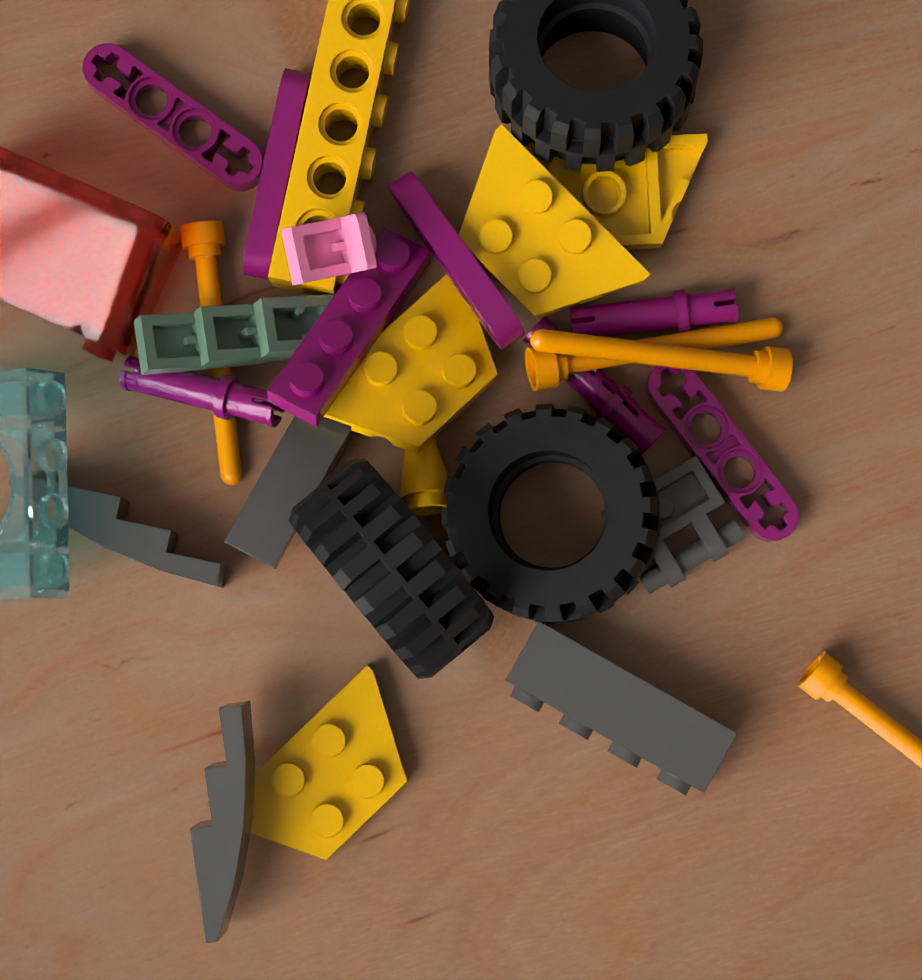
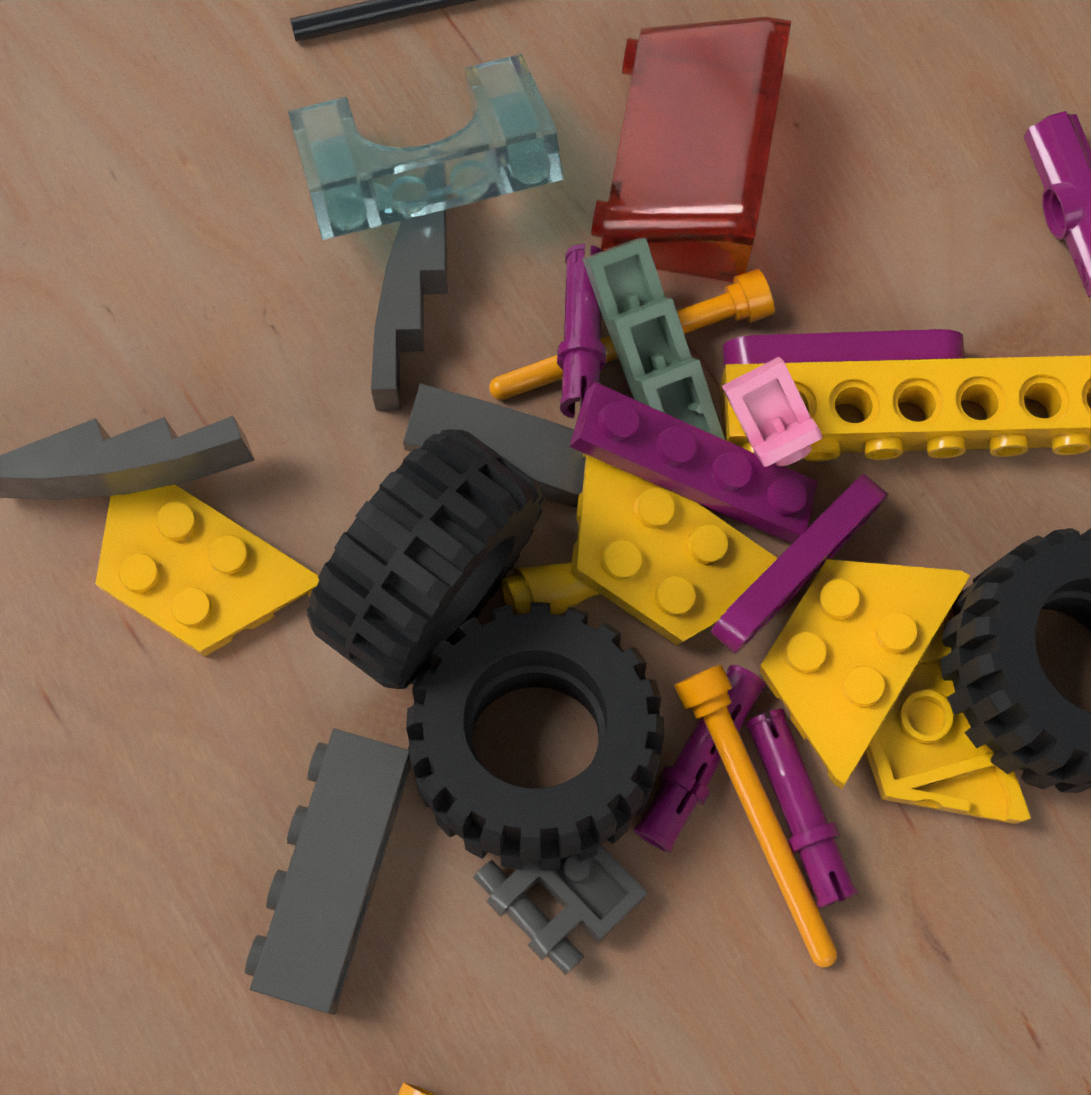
camera: 75 degrees right, 10 degrees down
(177, 113) = (876, 239): magenta beam -> none
(729, 444) = (656, 920): magenta beam -> none
(767, 368) = (772, 953): light orange piece -> none

